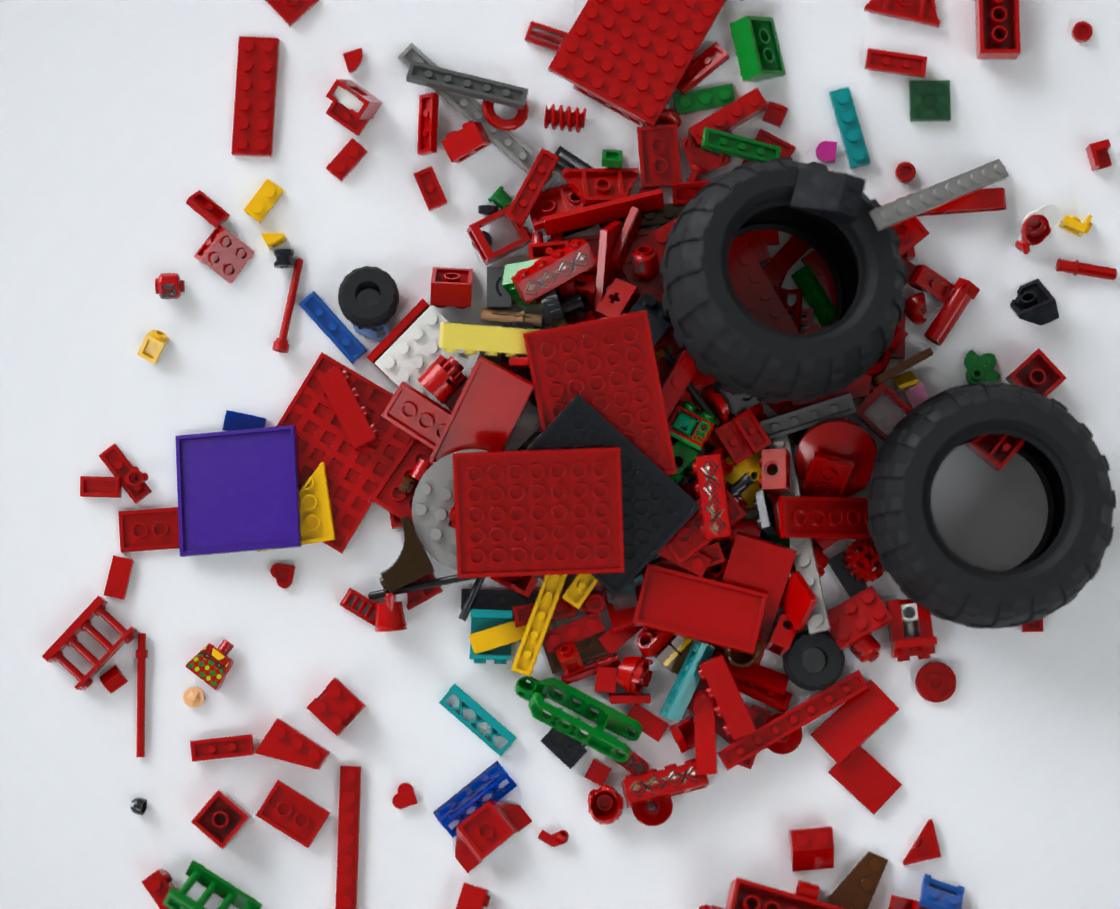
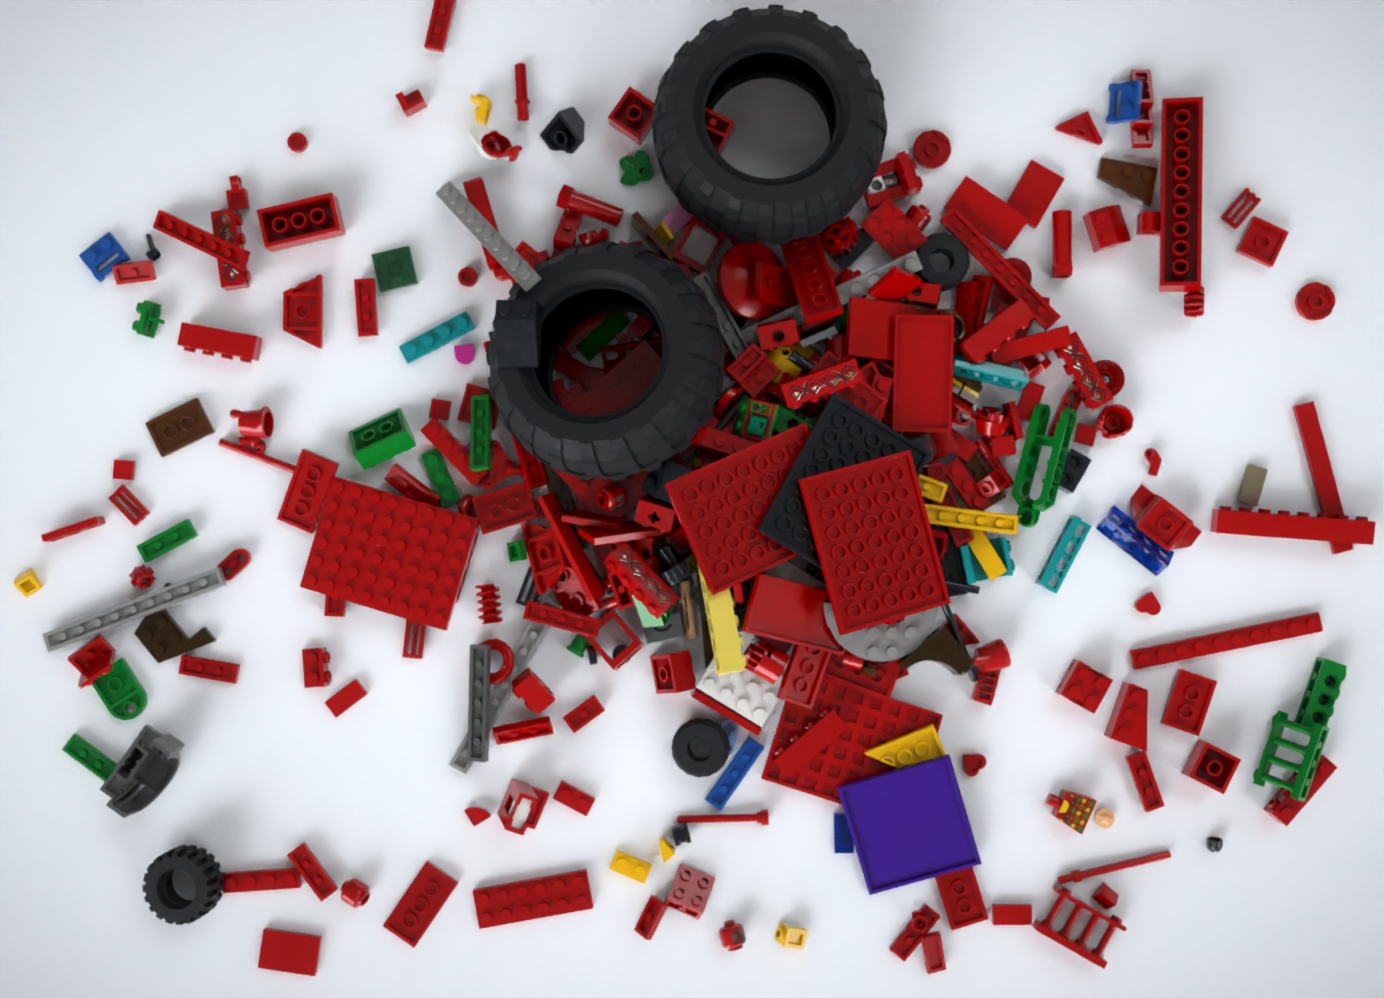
camera: 100 degrees left, 5 degrees up
(805, 794) = (1062, 244): none -> red piece

